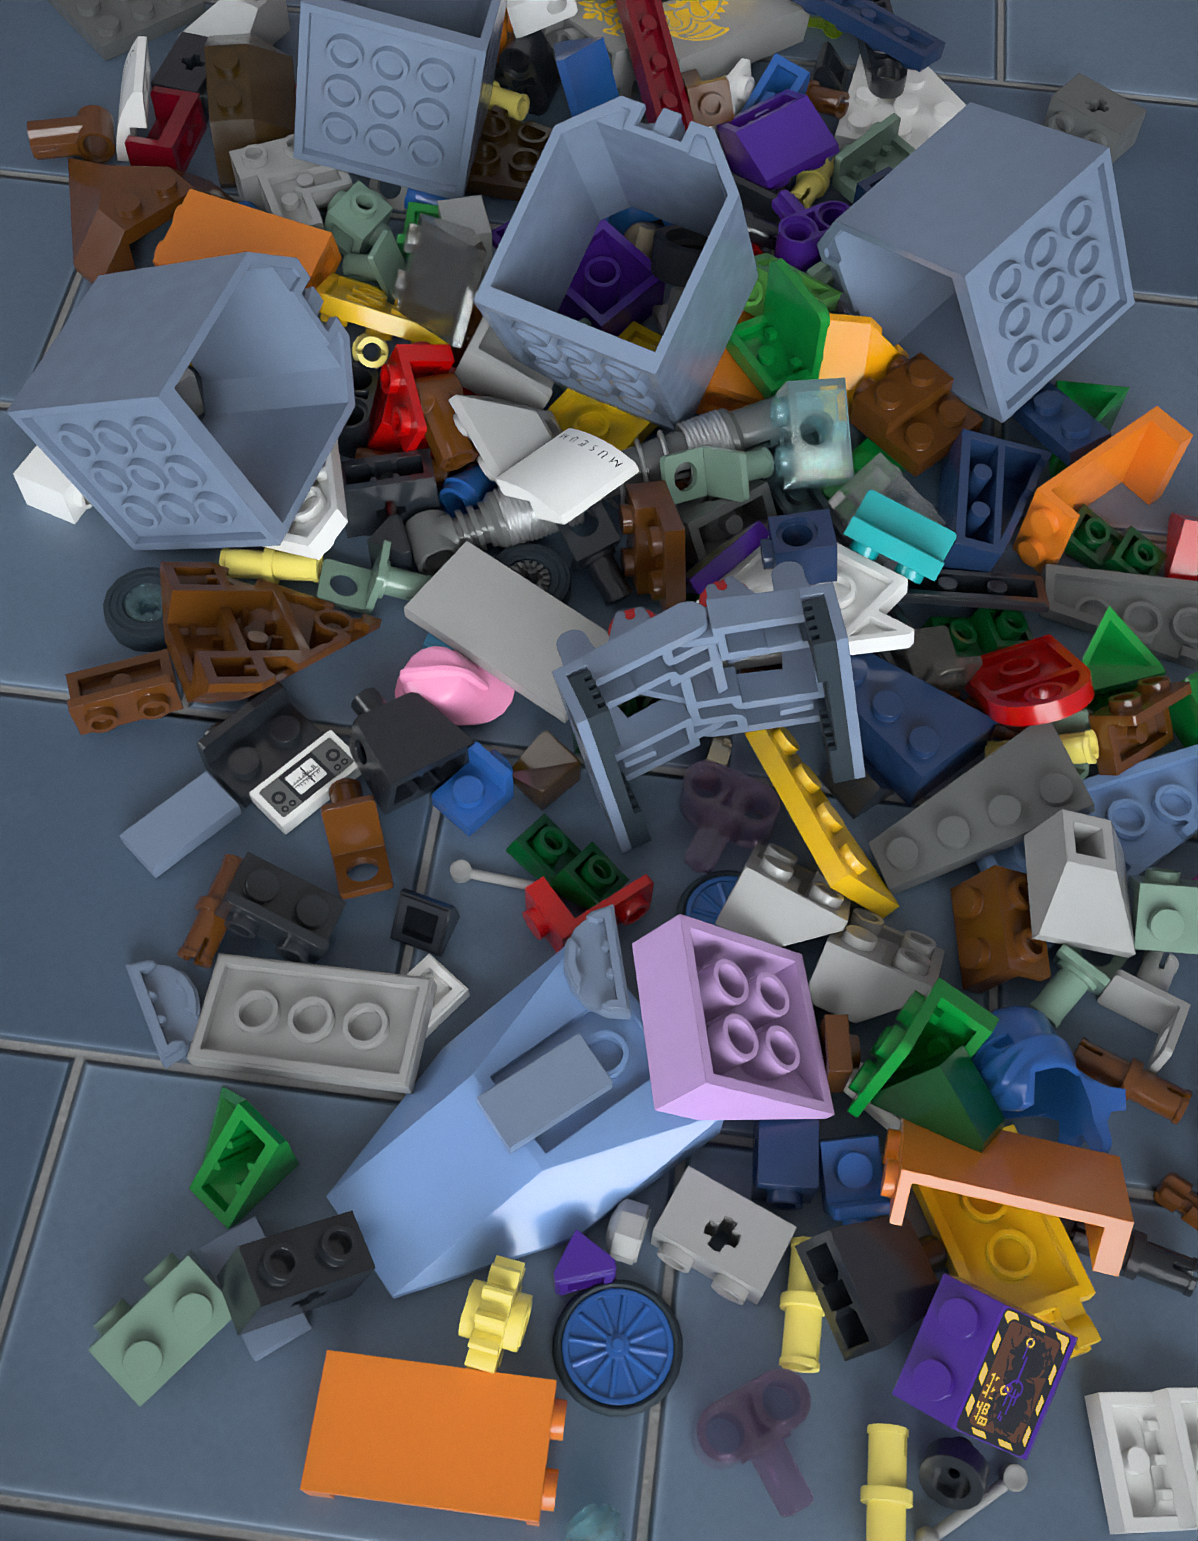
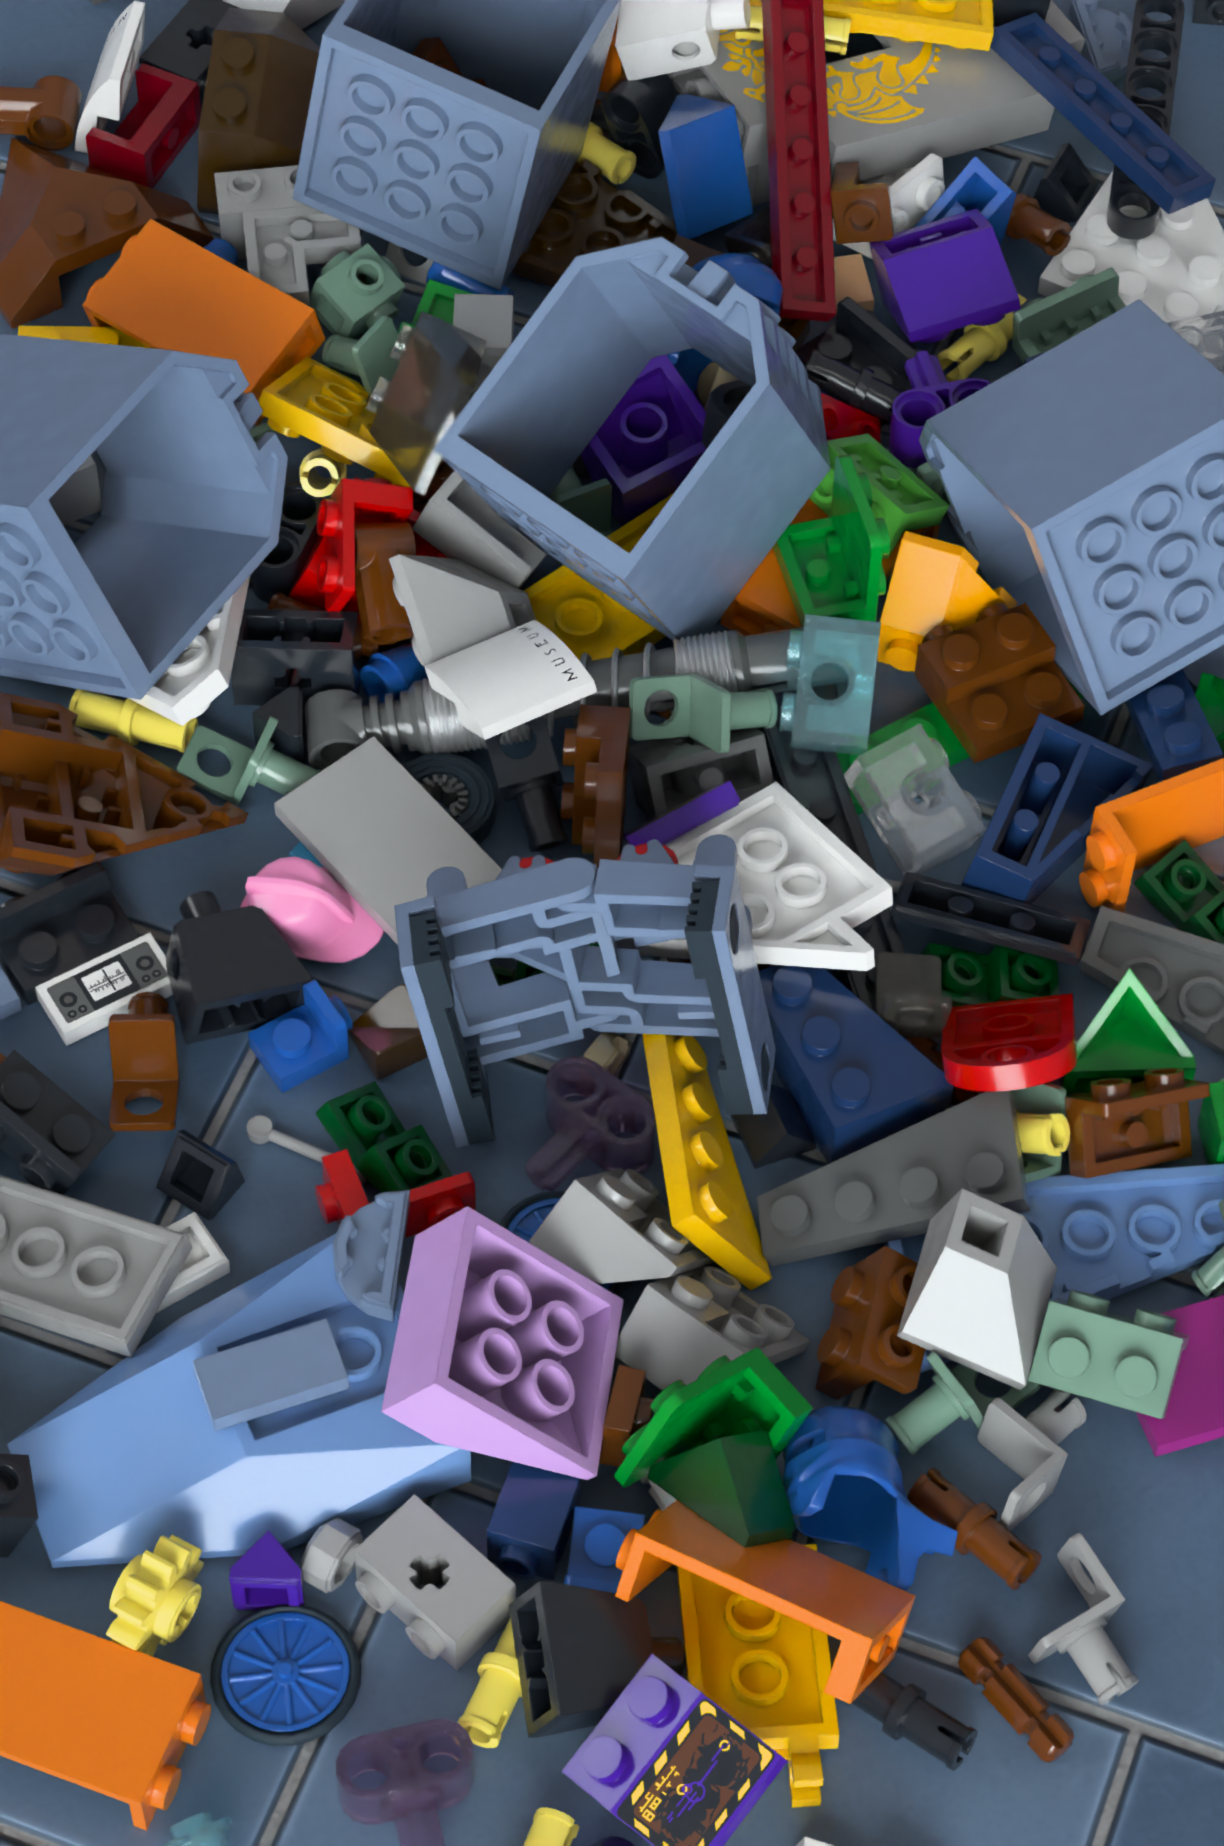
camera: 15 degrees right, 5 degrees down
(805, 540) = (769, 824): dark blue brick -> none
(900, 535) = (905, 834): teal bracket -> none

